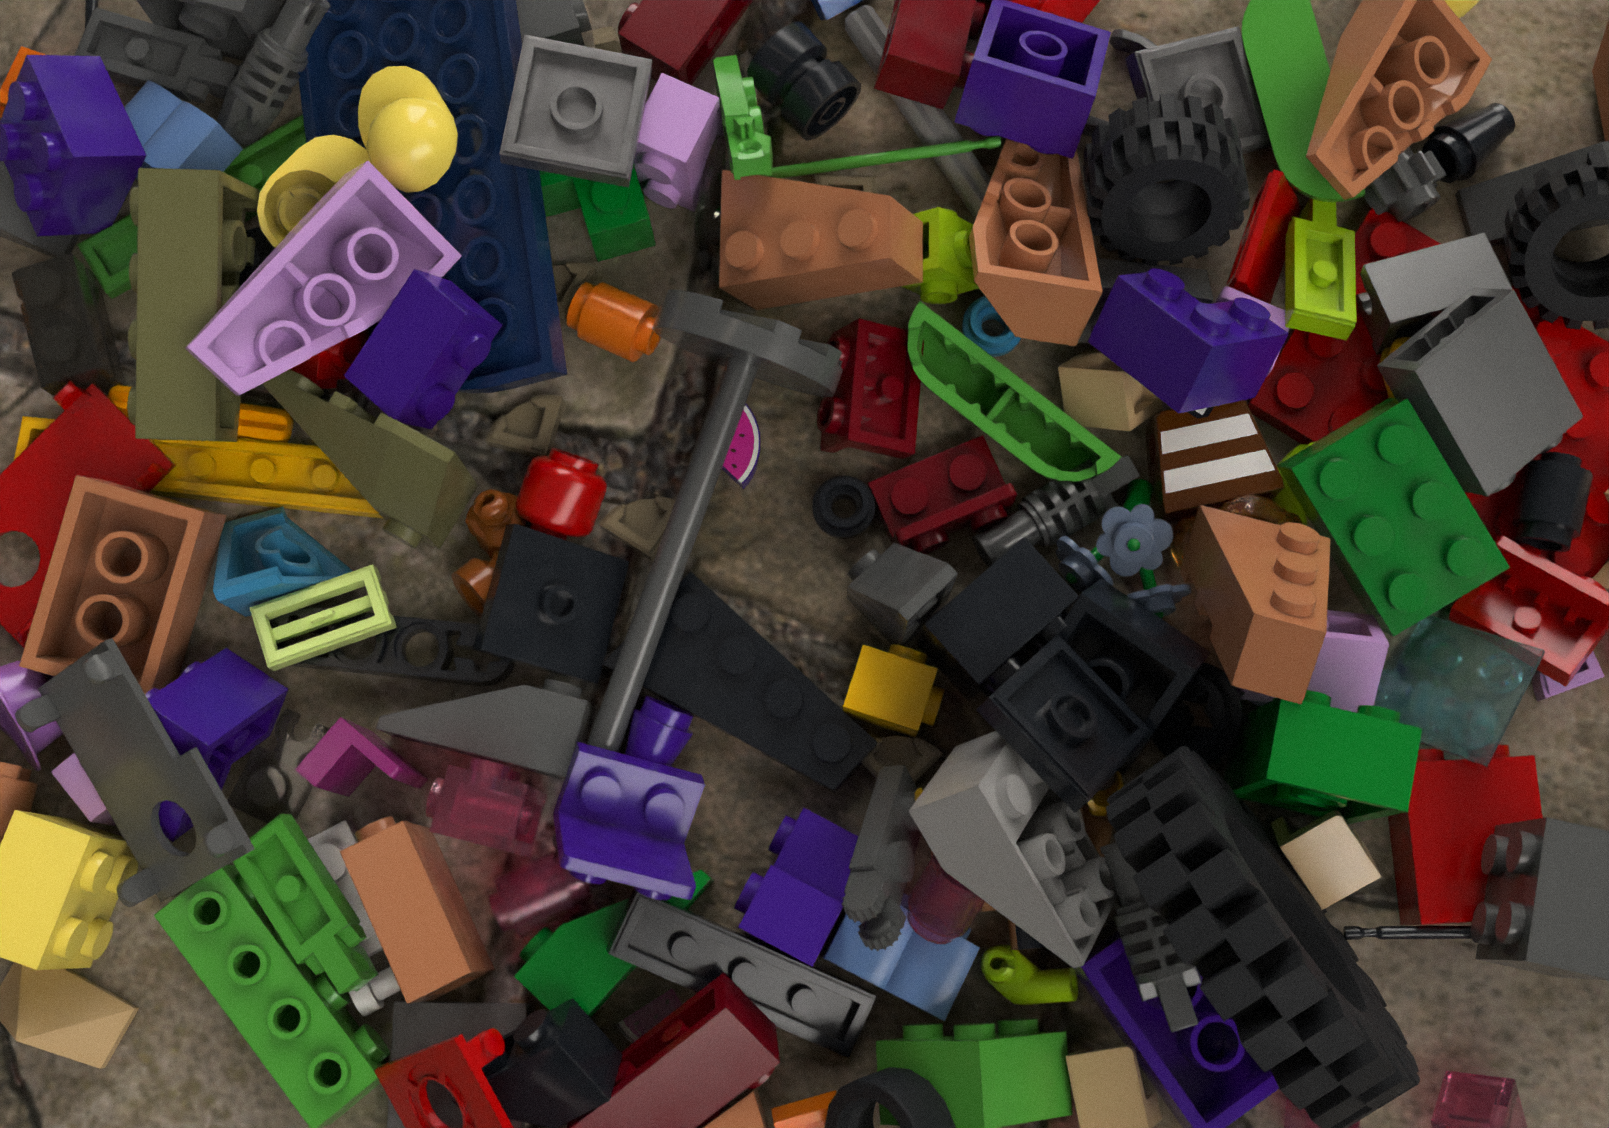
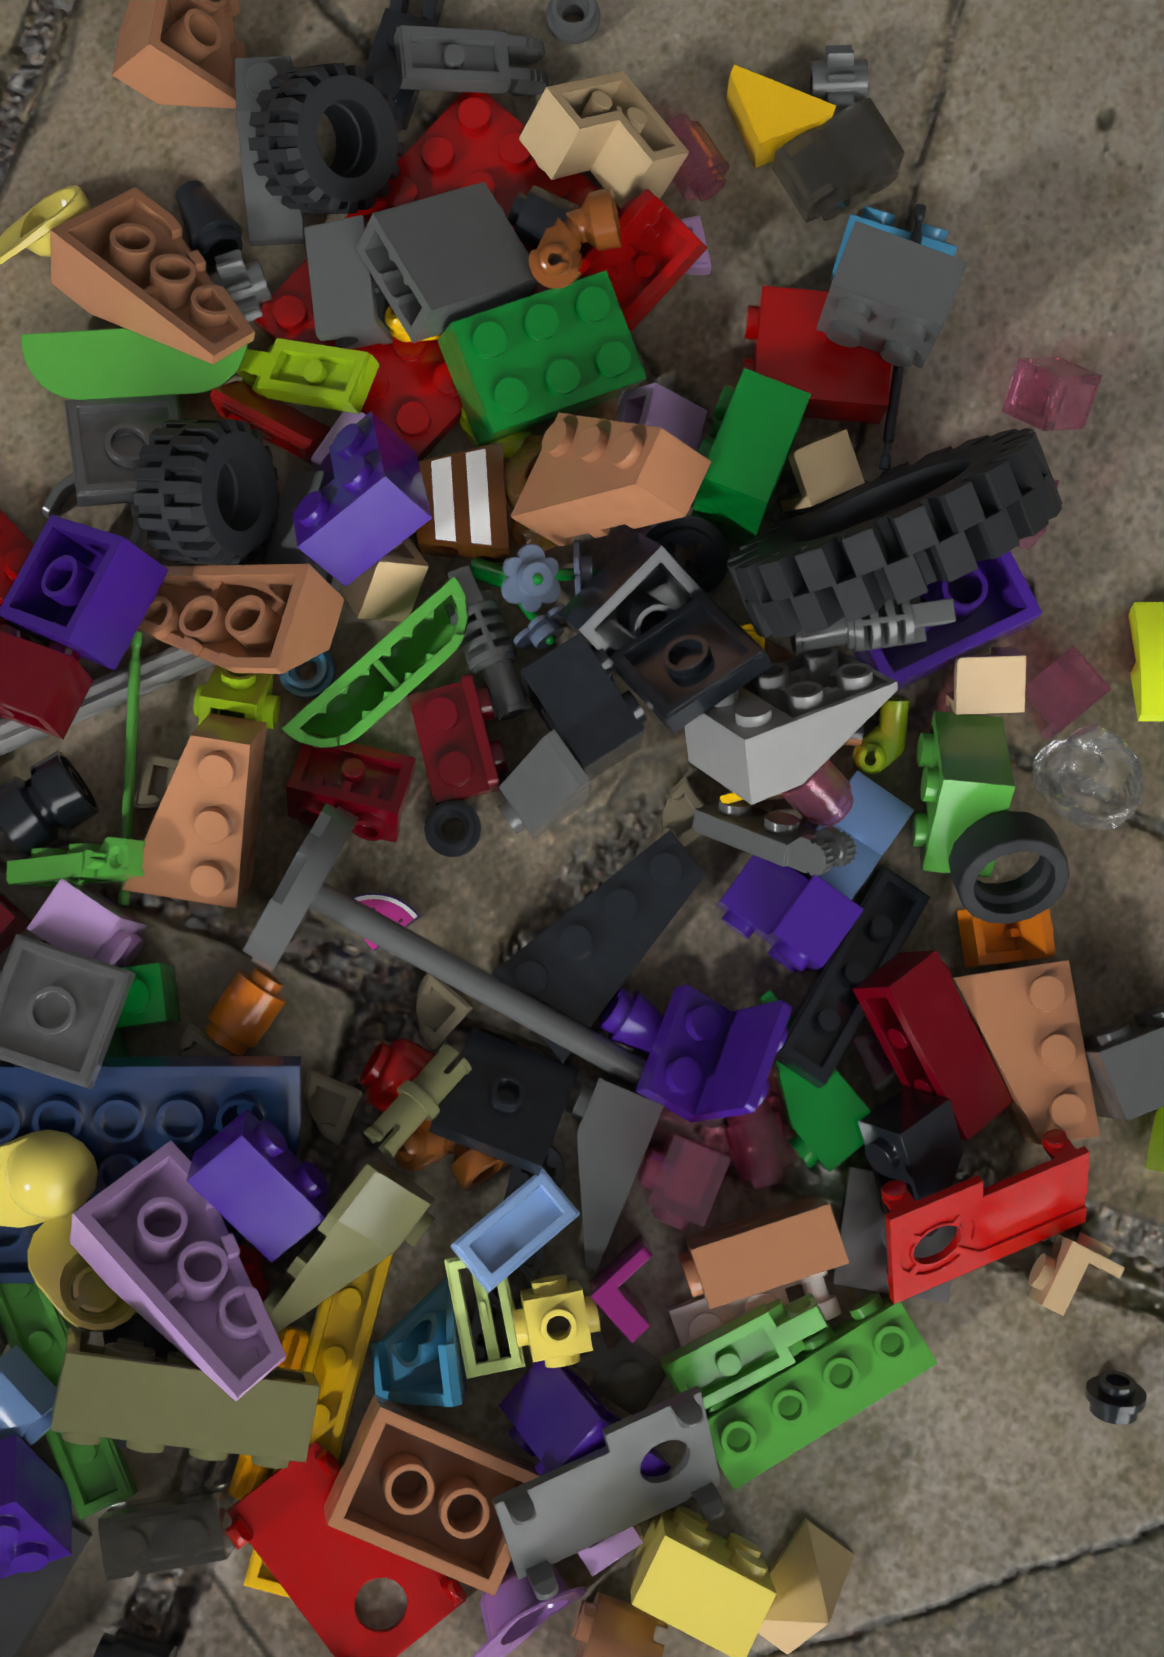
camera: 85 degrees left, 5 degrees up
(339, 693) = (551, 1298): none -> light yellow brick
(411, 633) = (515, 1230): none -> light blue tile
(536, 505) = (418, 1100): none -> olive pin
(709, 198) = (144, 905): clear smoke bar -> none
(893, 689) = (624, 809): yellow brick -> none
(1458, 686) = (695, 336): clear light blue hinge -> none
(1516, 508) = (558, 255): none -> dark orange arm

